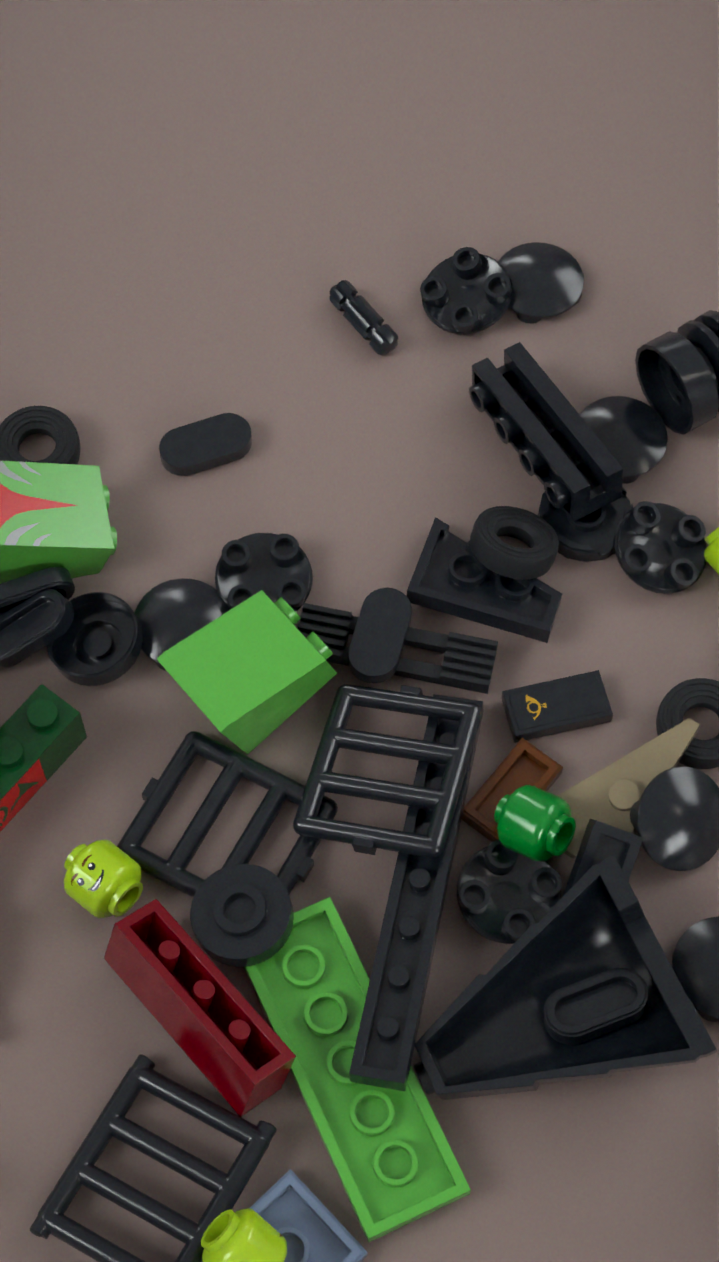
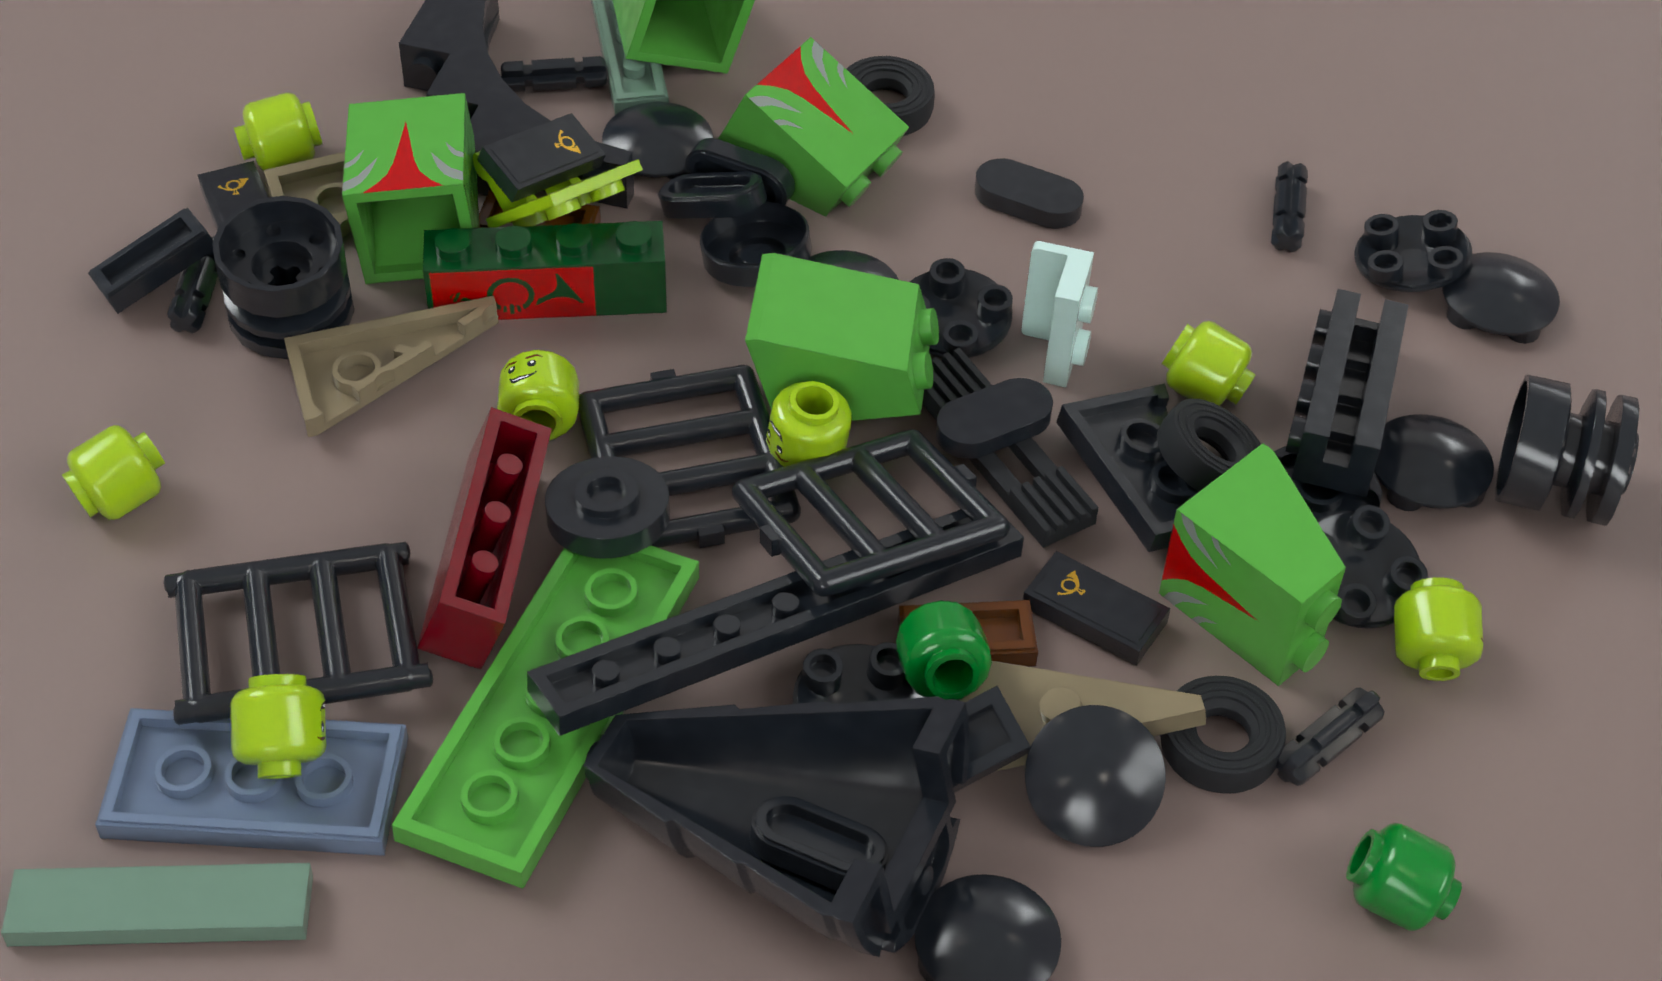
camera: 45 degrees right, 15 degrees down
(289, 744) = (807, 423): none -> lime head
(340, 515) = (1058, 305): none -> light aqua bracket
(449, 483) = (1209, 364): none -> lime head
(632, 603) = (1255, 567): none -> bright green slope

